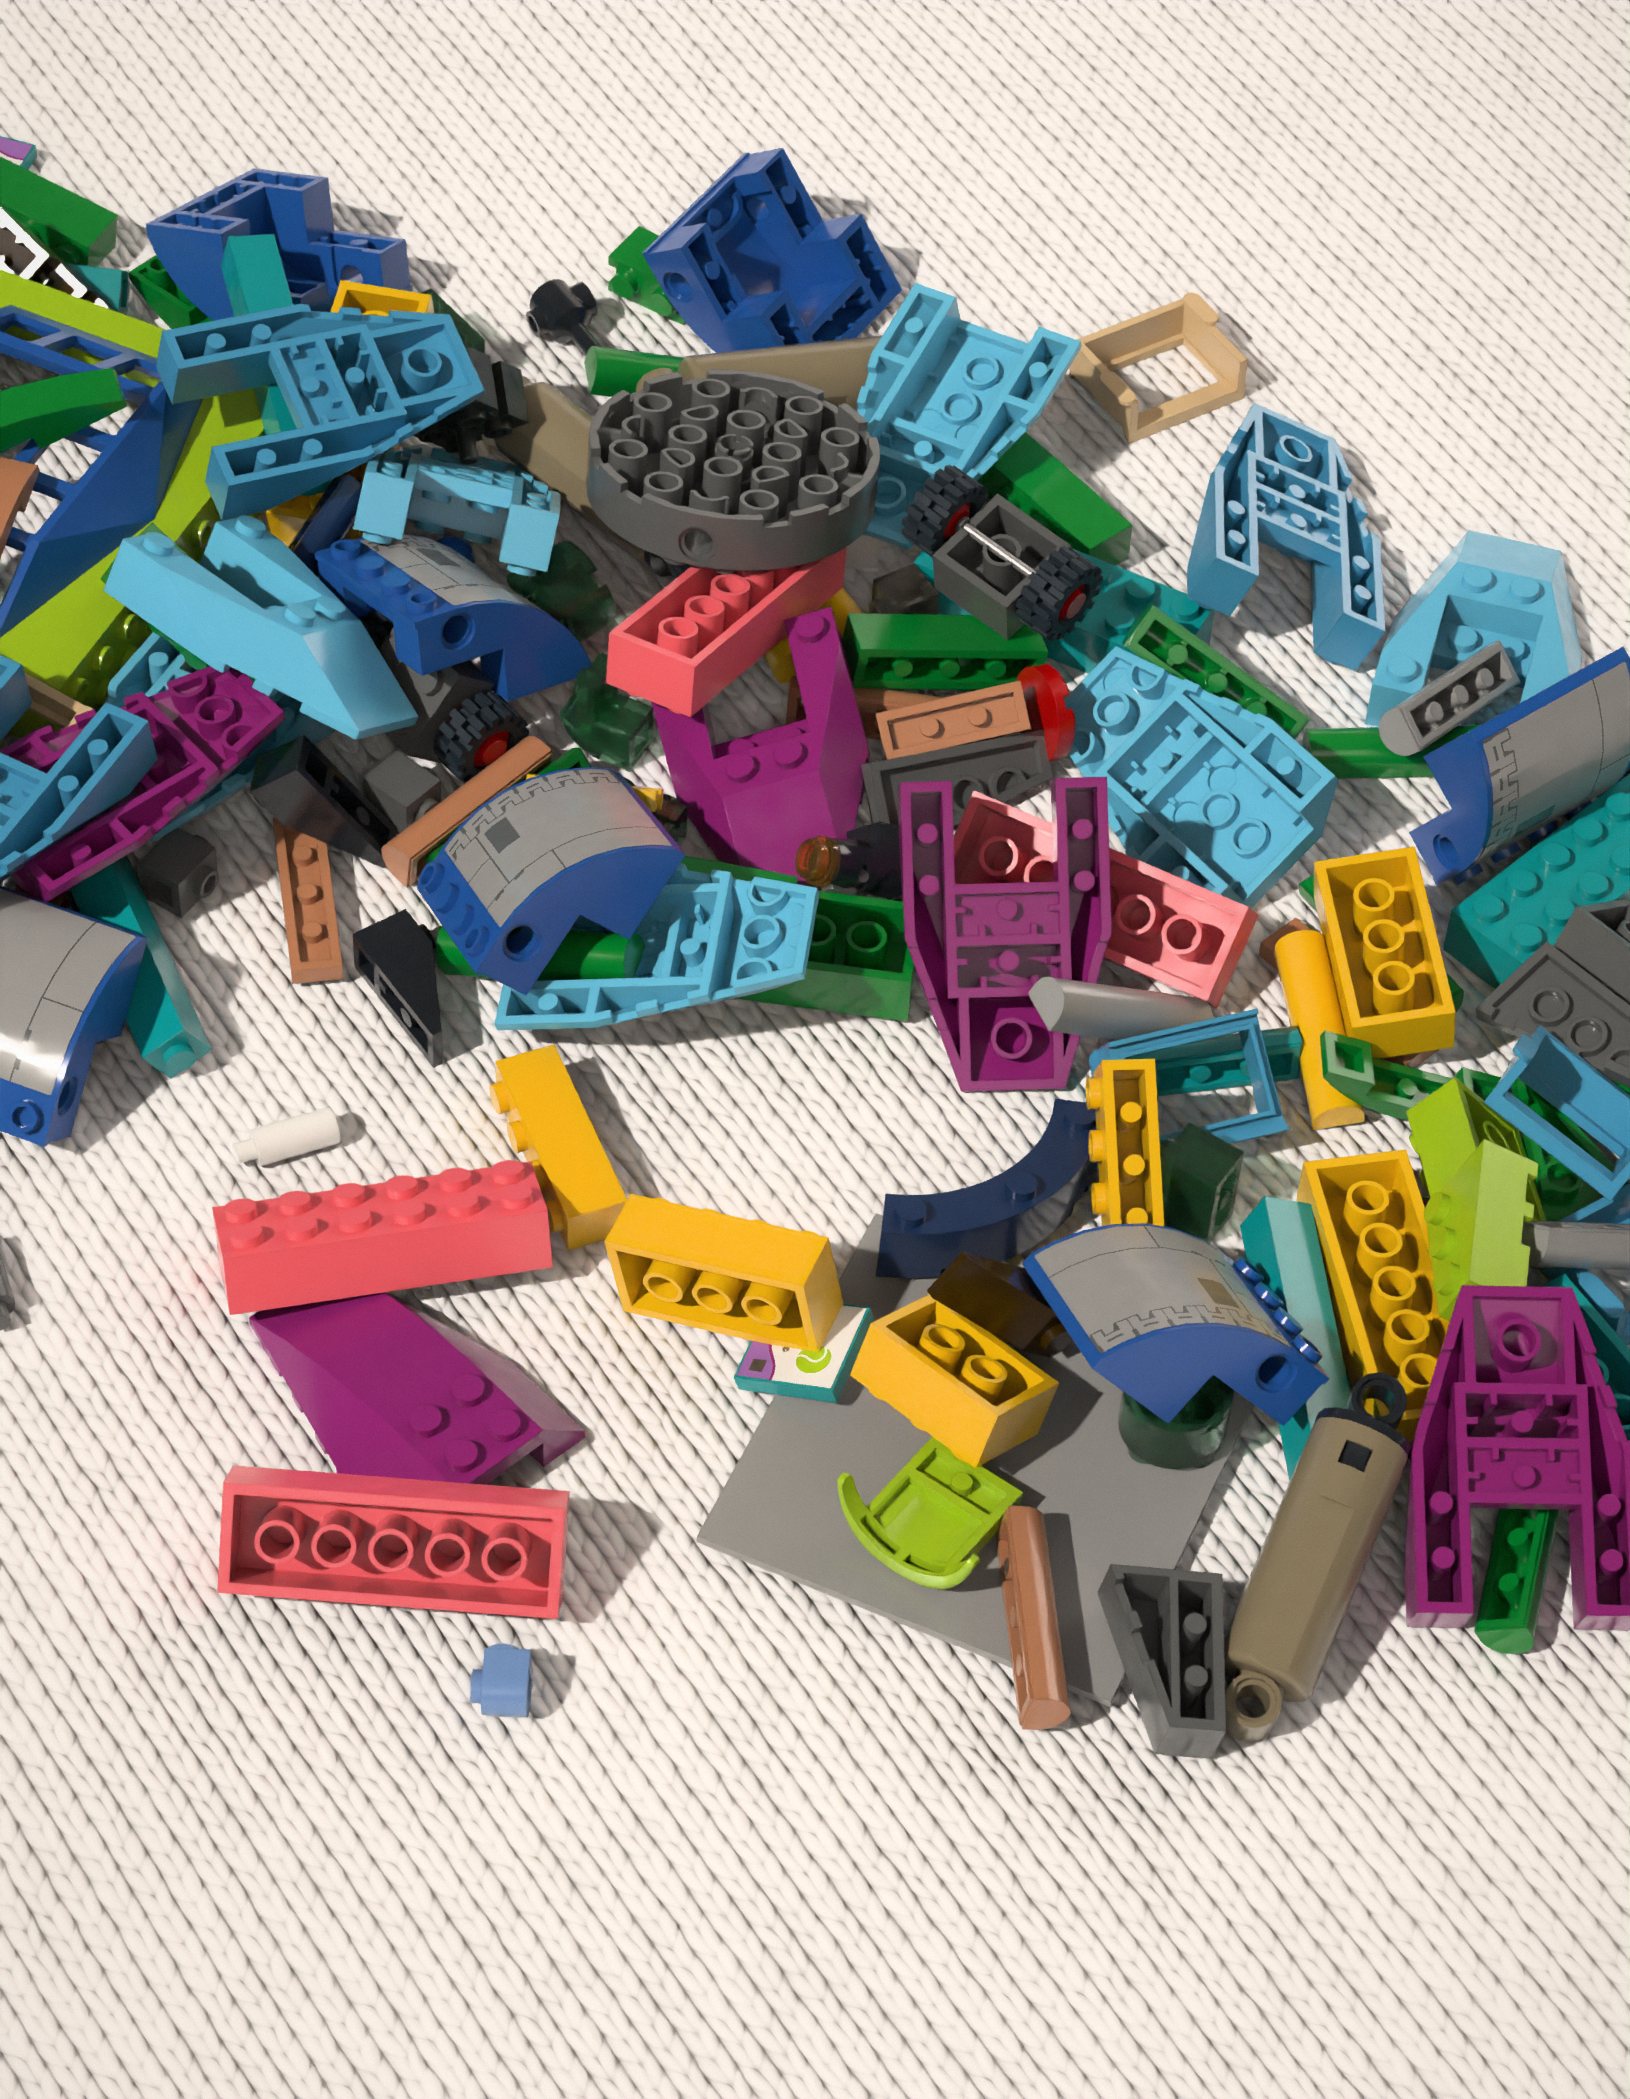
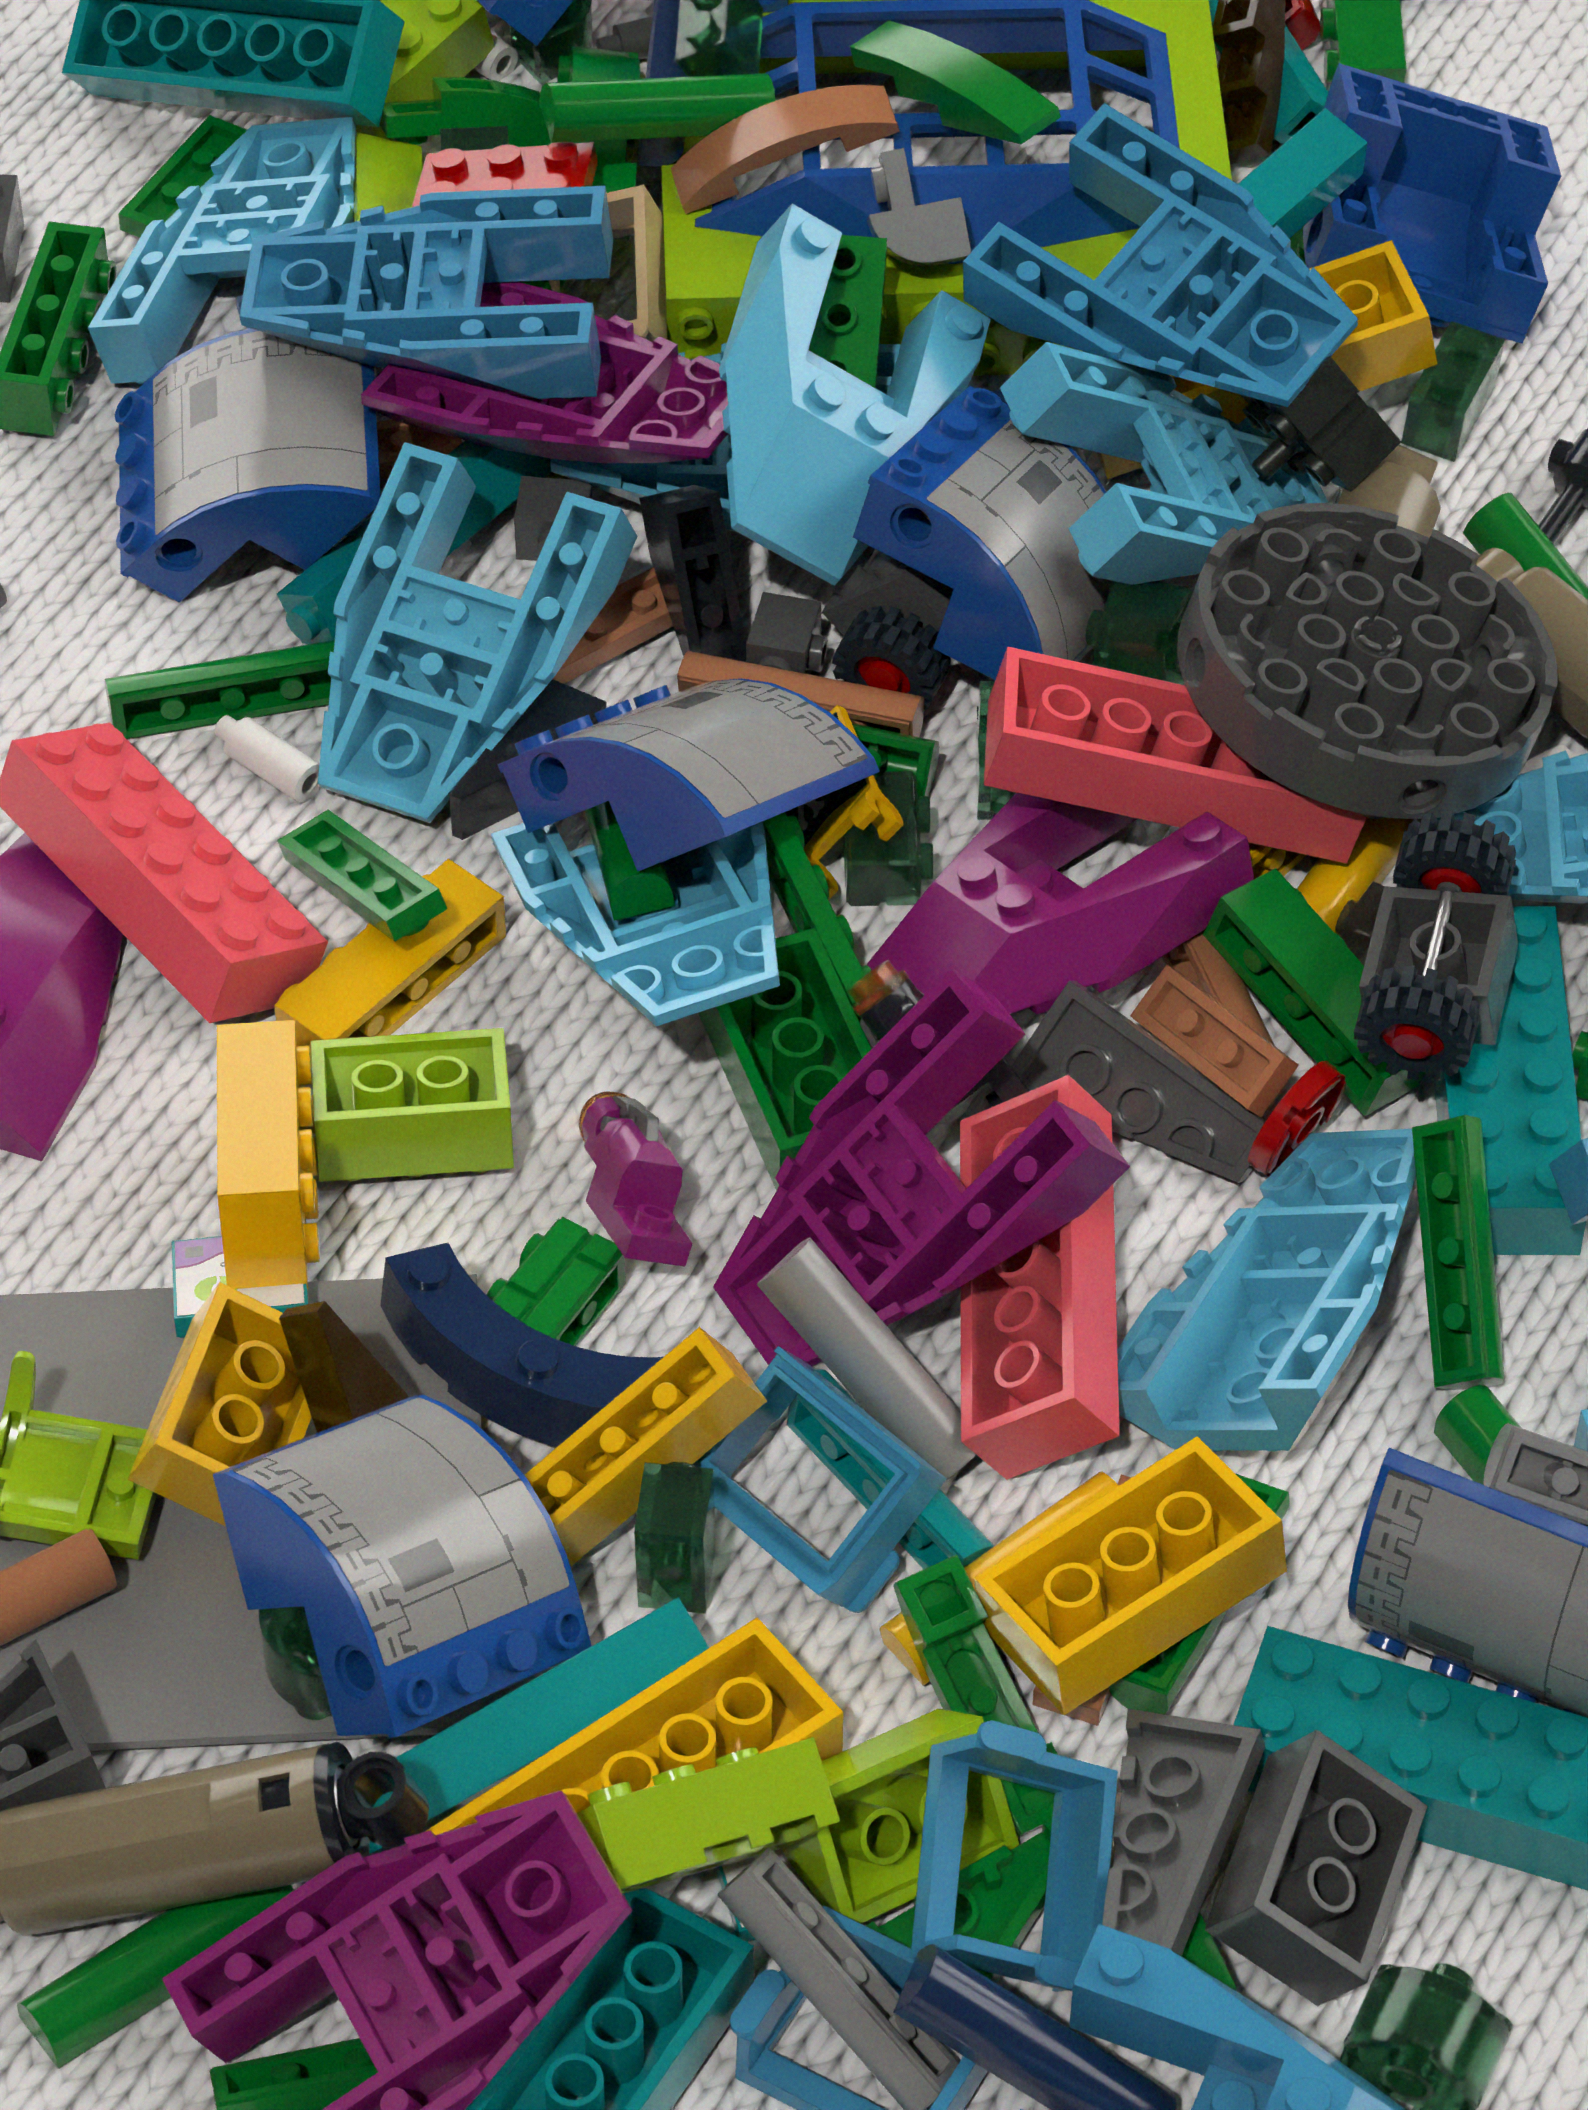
camera: 65 degrees right, 0 degrees up
(124, 505) = (919, 233): none -> light grey brick
(201, 1134) = (211, 689): none -> green brick
(307, 988) = (439, 665): none -> medium azure wedge
(478, 1116) = (362, 875): none -> green plate
(716, 1157) = (411, 1104): none -> lime slope
(861, 1077) = (633, 1179): none -> magenta plate
(918, 1159) = (562, 1281): none -> green brick
(1371, 1664) = (128, 1975): none -> green brick

